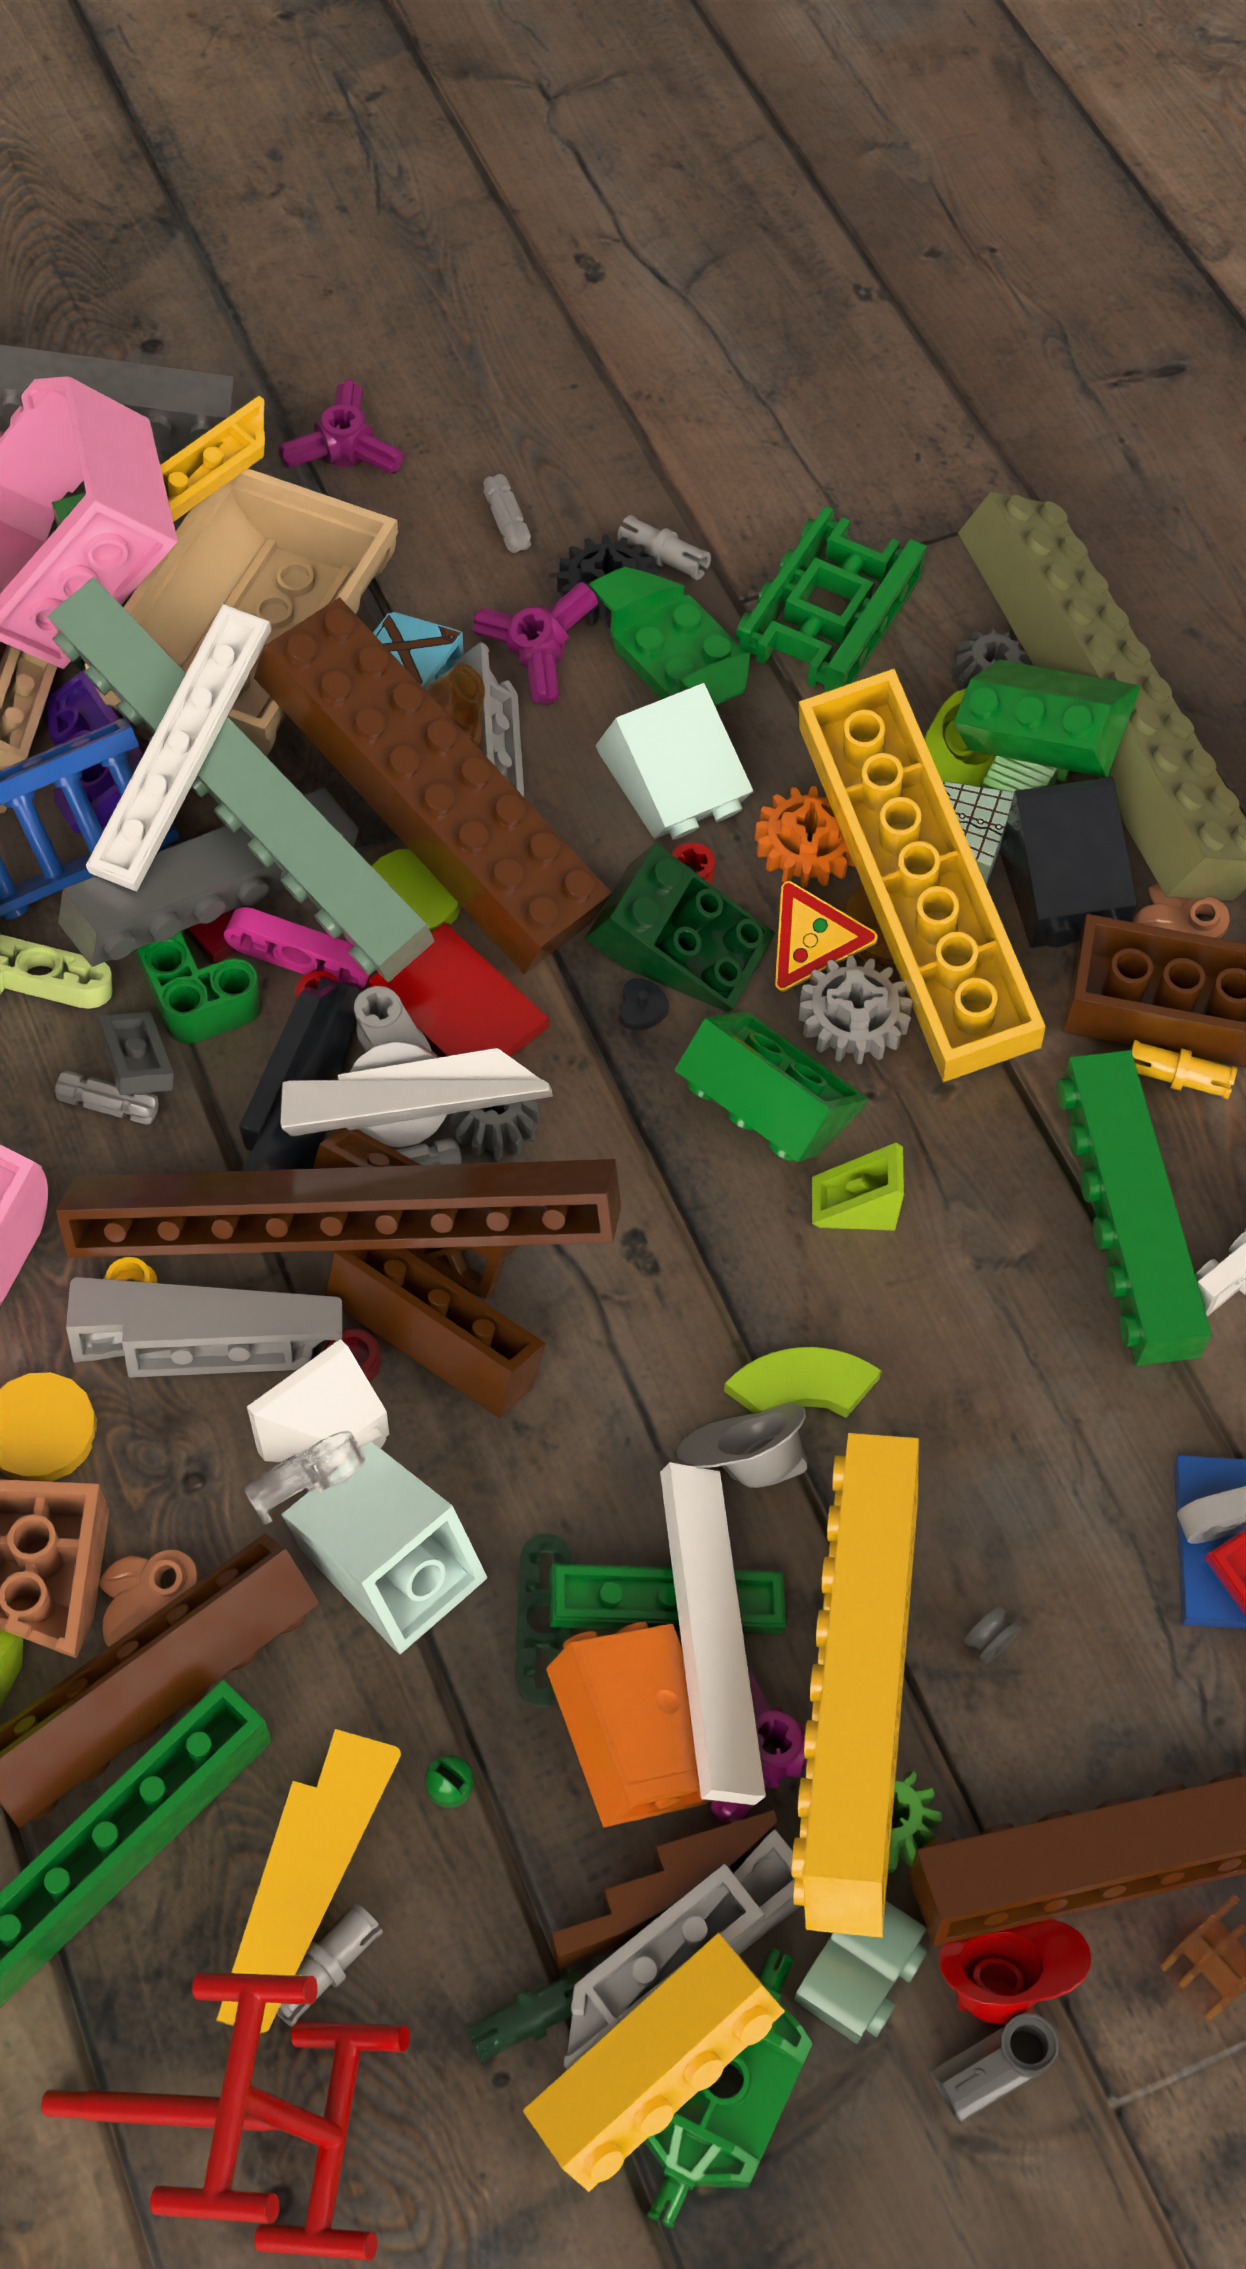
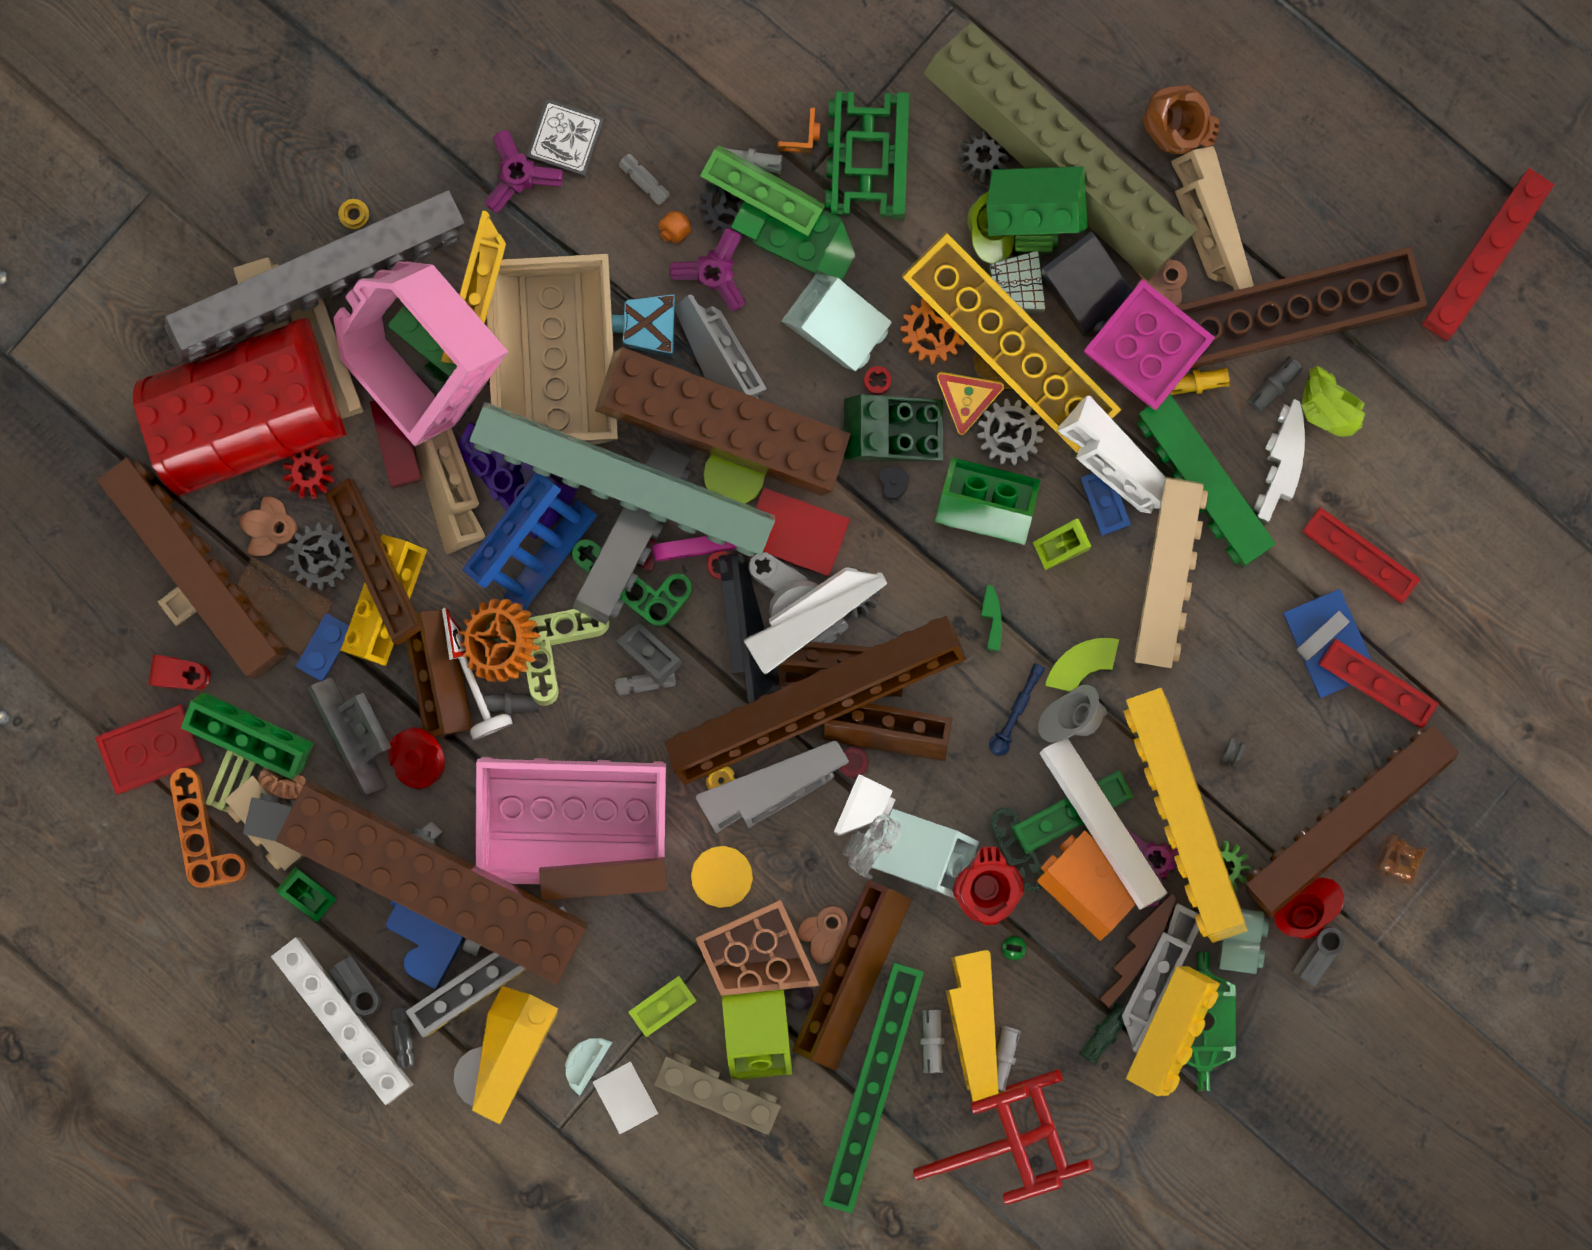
camera: 20 degrees left, 25 degrees up
(38, 1671) = (799, 998): none -> plate
(179, 748) = (590, 486): white tile -> none
(216, 1869) = (932, 1041): none -> light grey pin
(434, 432) = (565, 138): none -> tile
(458, 1641) = (988, 887): none -> red helmet
(461, 696) = (698, 353): clear orange piece -> none
(514, 583) = (674, 227): none -> orange piece
(606, 1436) = (999, 743): none -> dark blue piece
(658, 559) = (762, 190): none -> bright green panel
(692, 1241) = (991, 611): none -> green slope
(753, 556) = (807, 148): none -> orange bracket
(956, 1167) = (1105, 505): none -> blue plate
(1008, 1106) = (1113, 456): none -> white wedge
(1011, 1297) = (1168, 572): none -> tan brick
(1131, 957) = (1149, 345): none -> dark pink plate

